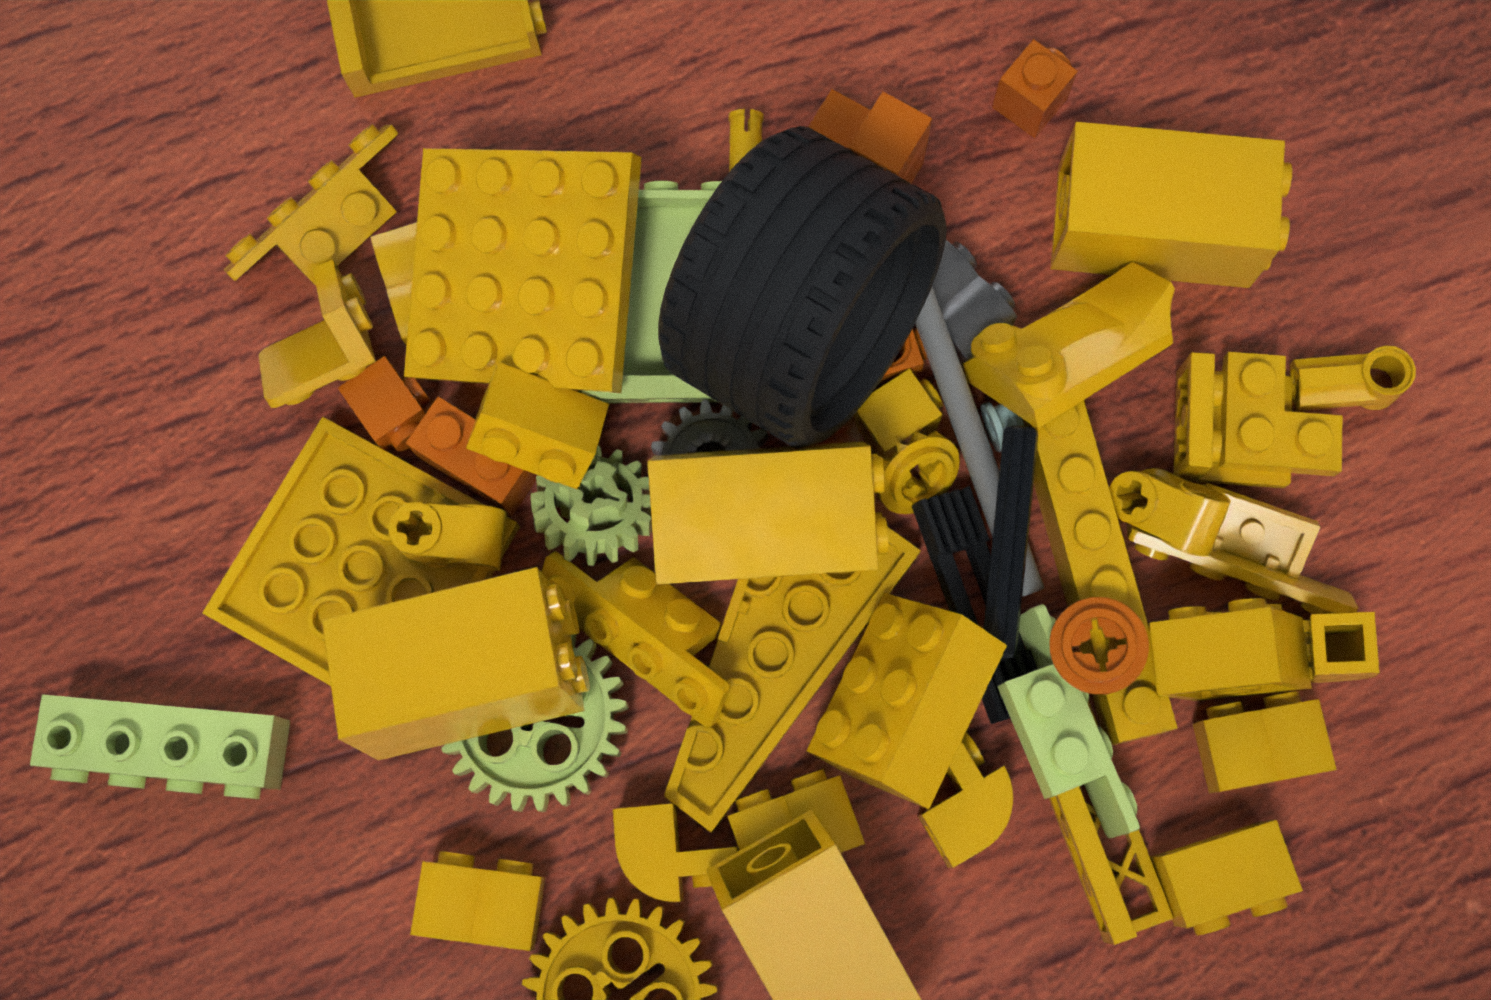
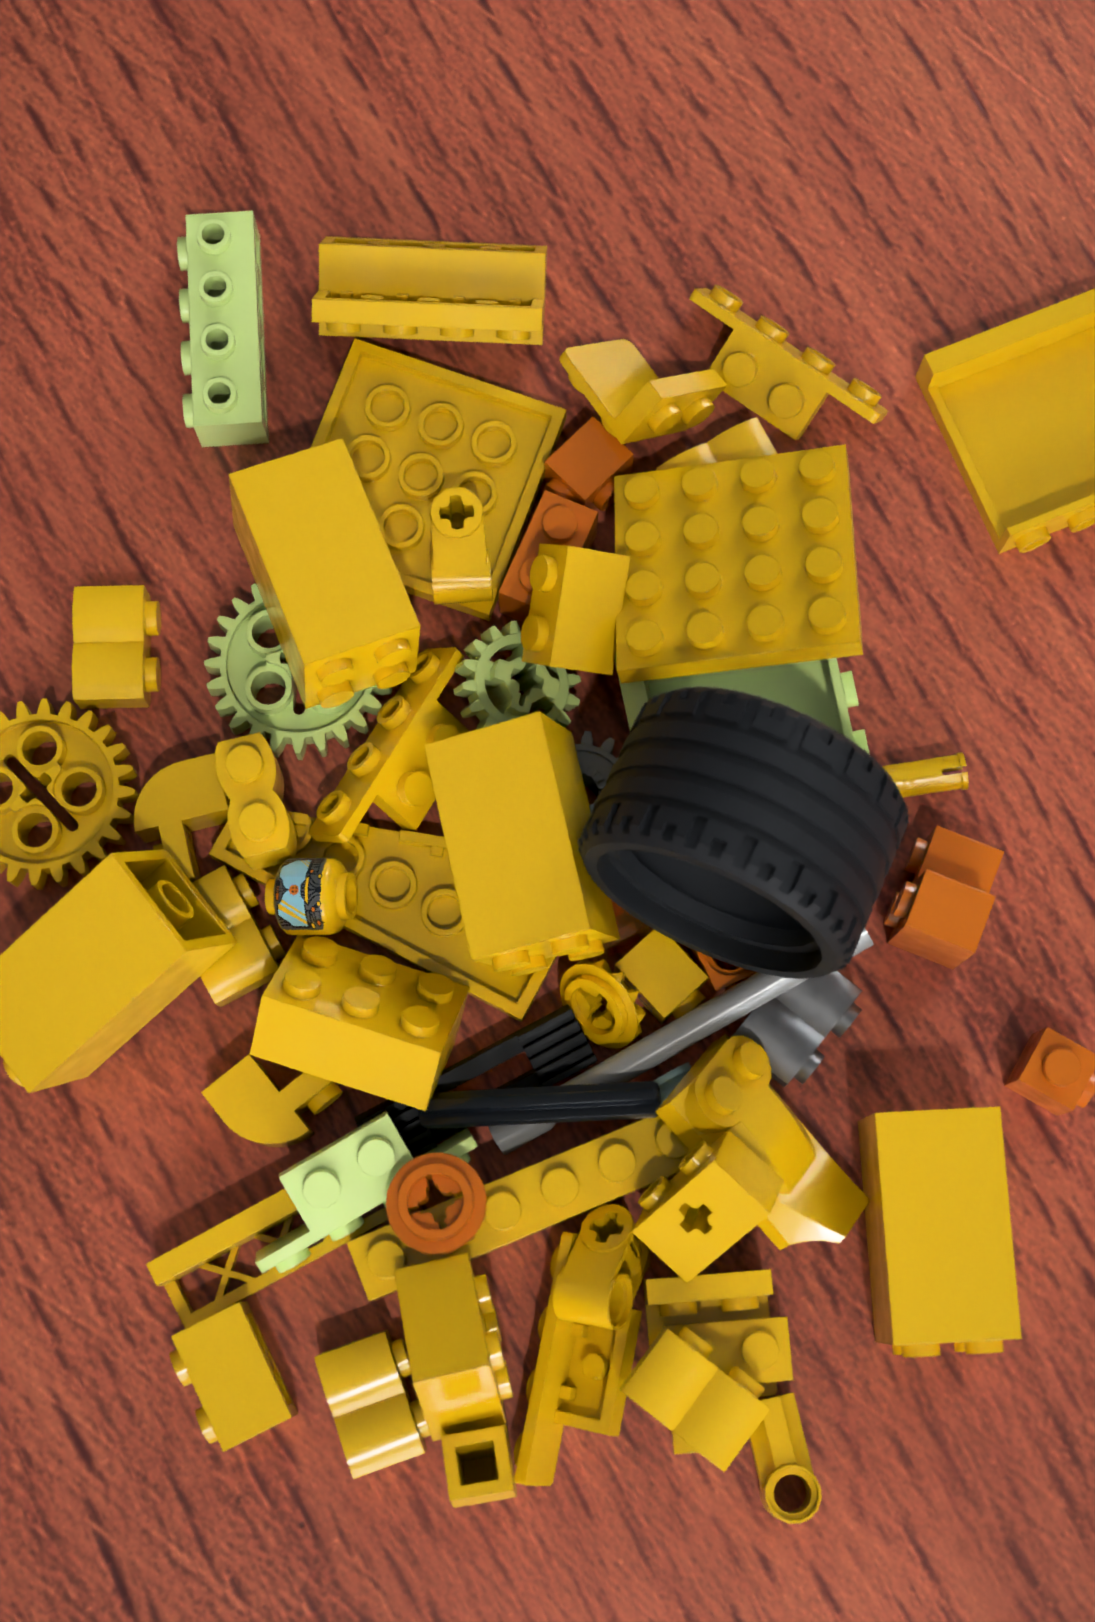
camera: 75 degrees right, 0 degrees up
(168, 527) = (431, 290): none -> yellow brick
(654, 774) = (256, 813): none -> yellow brick
(775, 730) = (312, 896): none -> head
(1133, 393) = (706, 1205): none -> yellow brick
(1302, 437) = (695, 1397): none -> yellow brick

